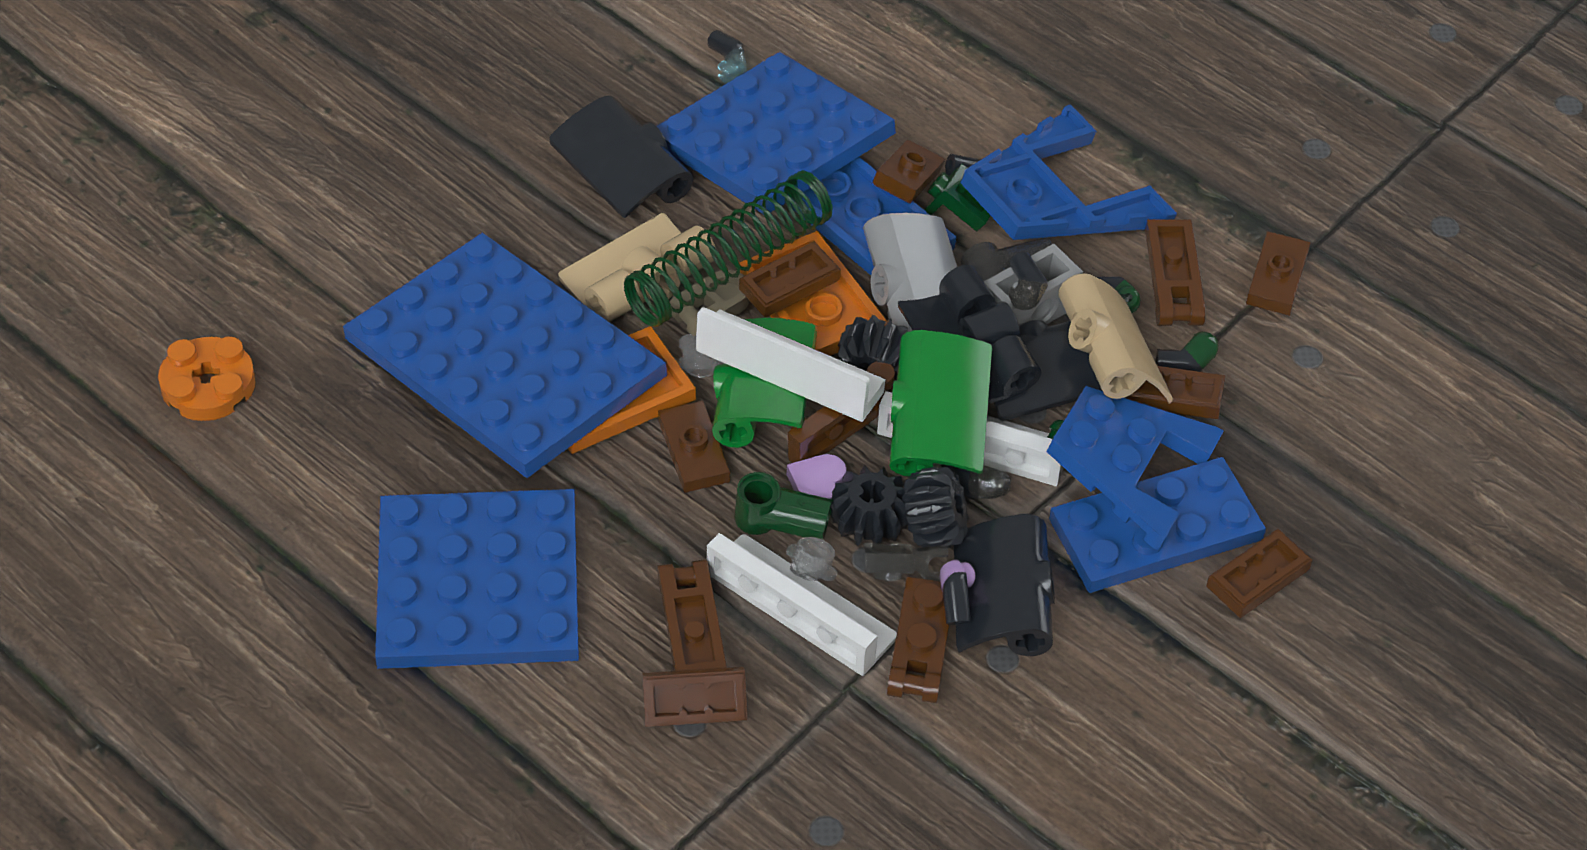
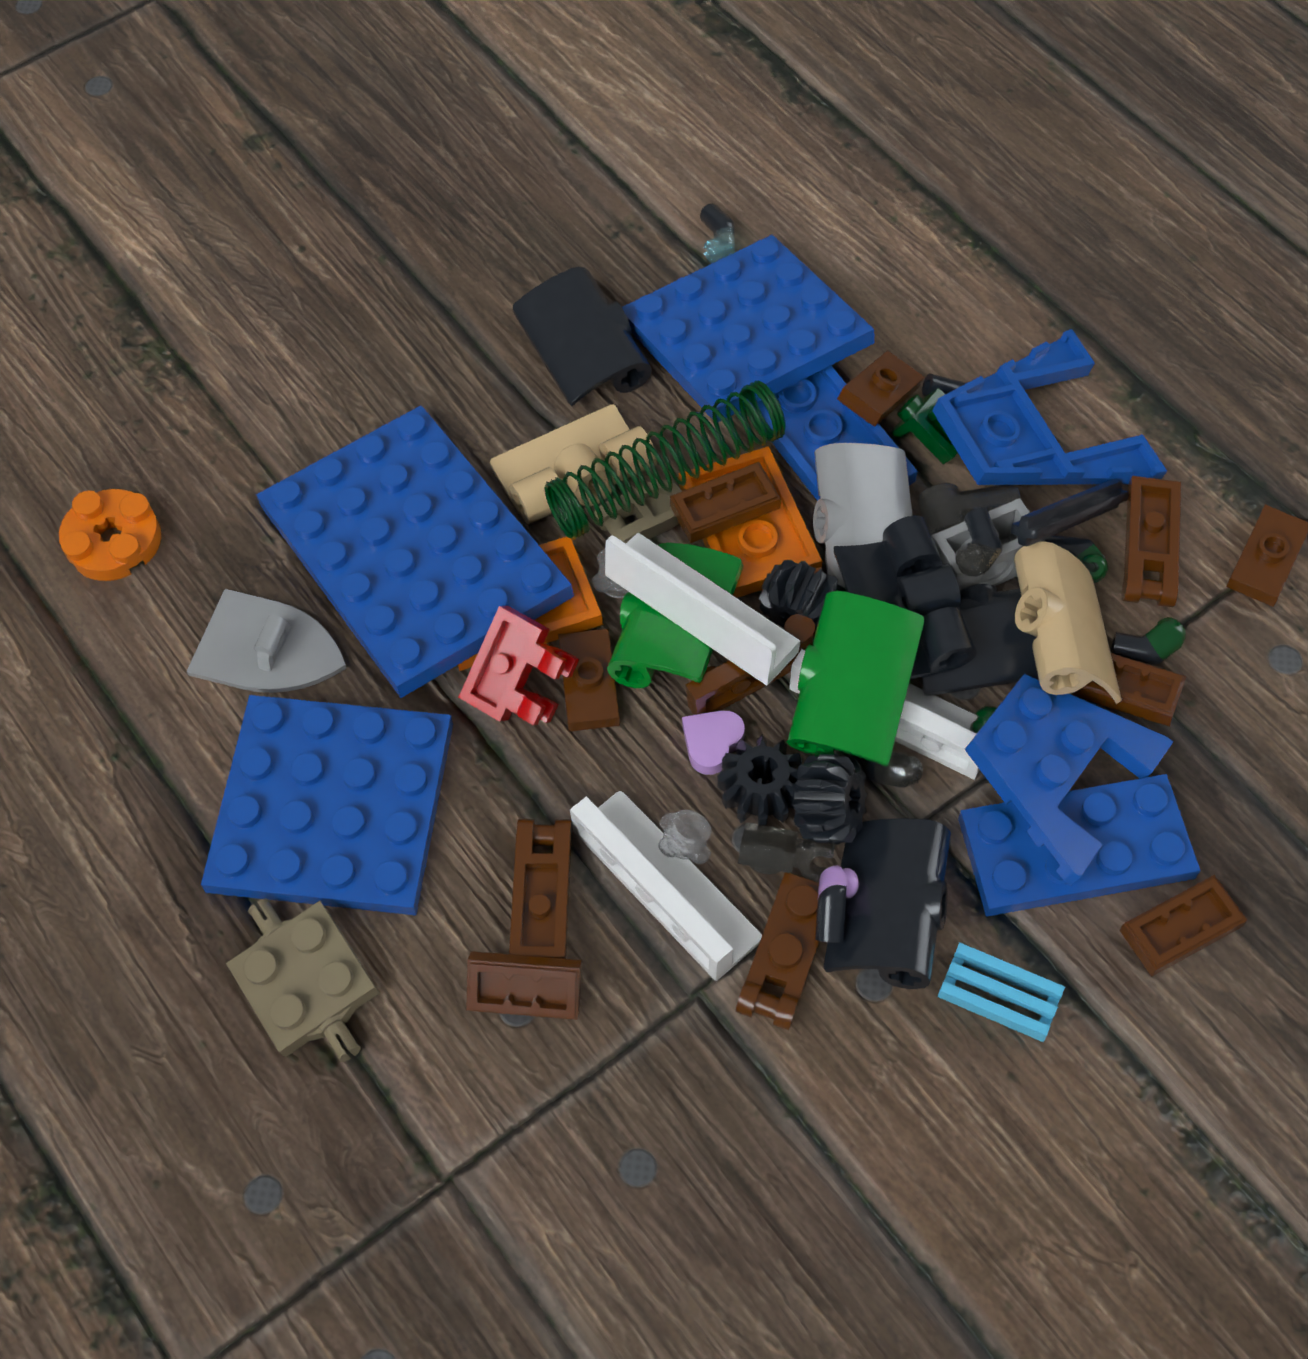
camera: 15 degrees right, 10 degrees up
(381, 457) = (264, 646): none -> light grey shield
(489, 722) = (303, 979): none -> dark tan plate
(618, 438) = (504, 665): none -> plate
(779, 508) = (668, 775): dark green piece -> none
(1099, 251) = (1069, 512): none -> black axle
(1114, 640) = (1010, 974): none -> medium azure tile

